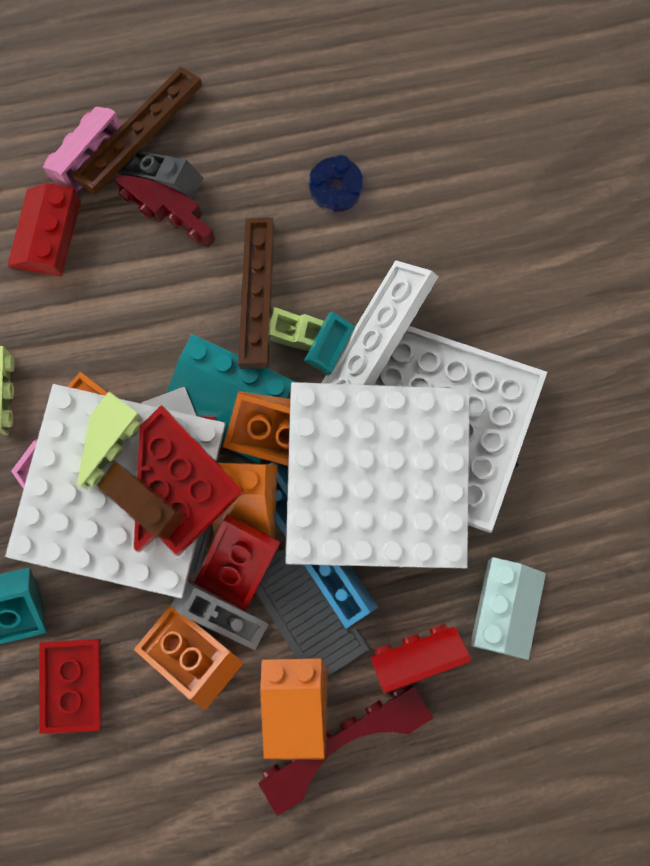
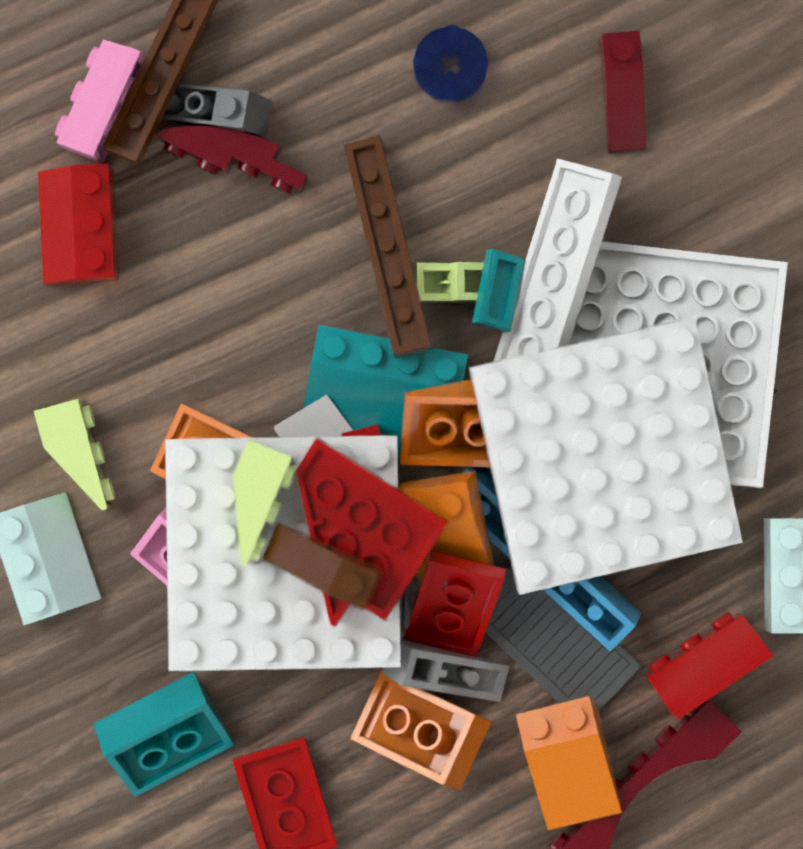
camera: 20 degrees left, 10 degrees up
(454, 227) = (623, 90): none -> dark red slope

